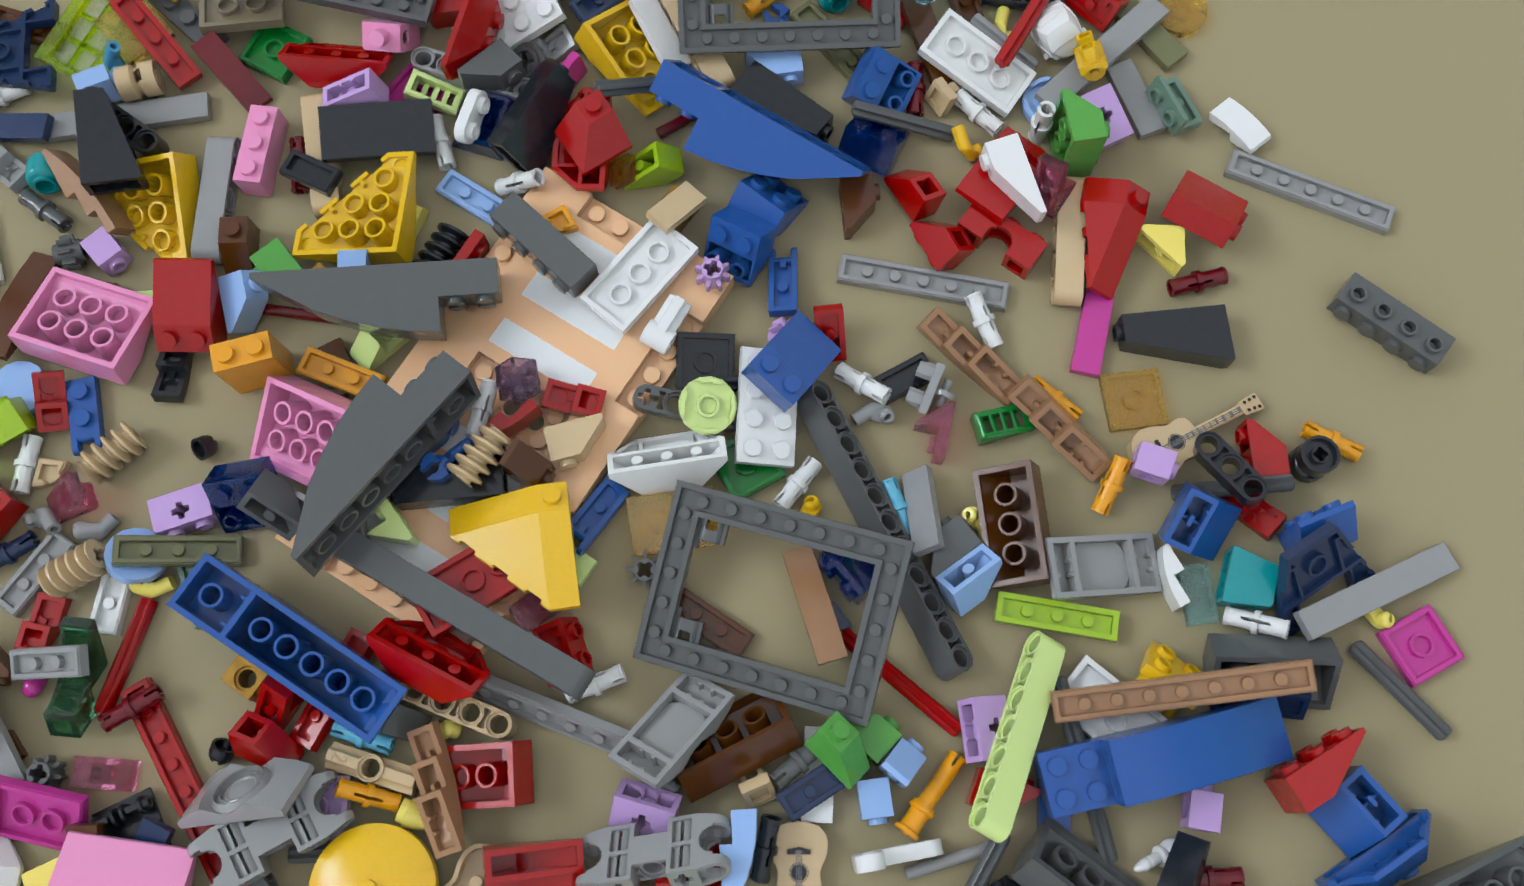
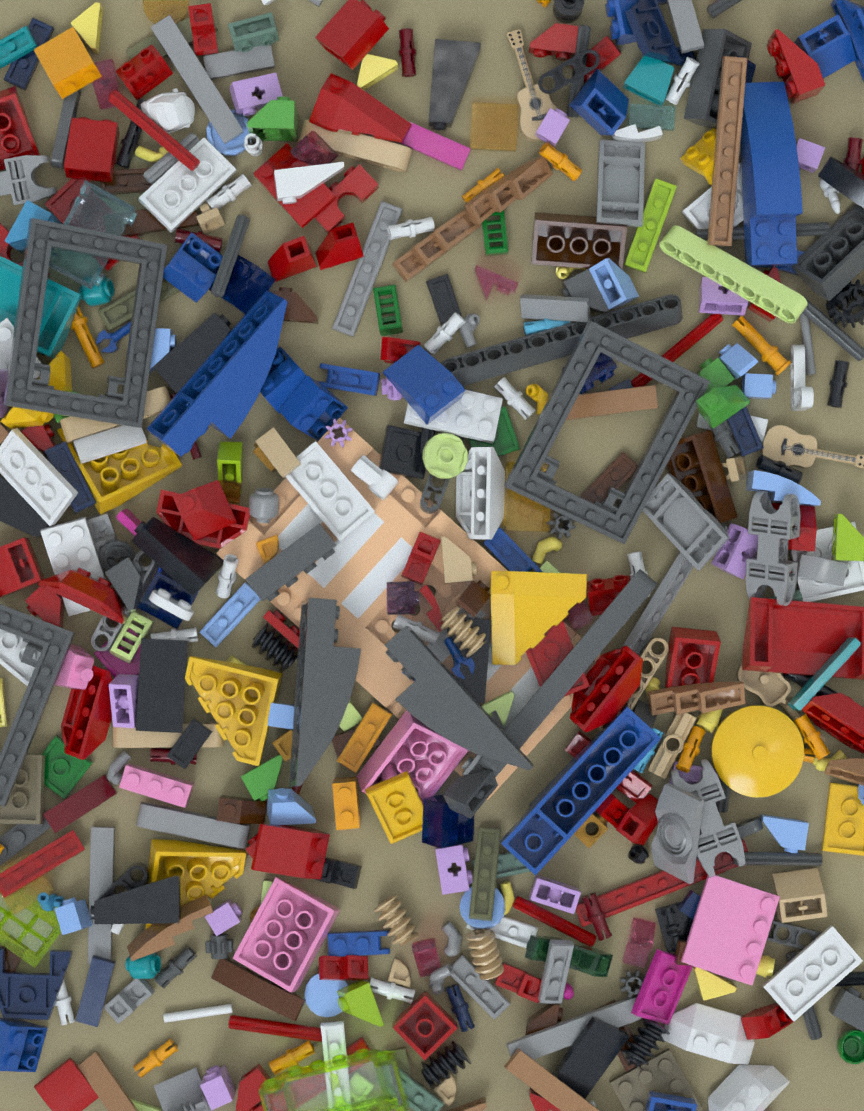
camera: 85 degrees left, 15 degrees up
(131, 86) = (73, 889): tan wheel -> none
(157, 645) = (554, 894): none -> lavender brick
(204, 447) = (406, 848): black hinge -> none
(256, 424) = (397, 806): none -> yellow tile
(284, 106) = (113, 773): none -> light grey arm
(610, 203) = (264, 505): none -> light grey head
(614, 556) = (545, 546): none -> light yellow arm
(624, 86) = (161, 470): dark grey axle -> none
(859, 318) = (388, 329): none -> green slope
(933, 374) = (450, 277): light grey hips -> none
(962, 141) = (256, 211): yellow arm -> none
(1090, 56) = (206, 93): yellow hips -> none
(1164, 50) = (203, 29): none -> red slope

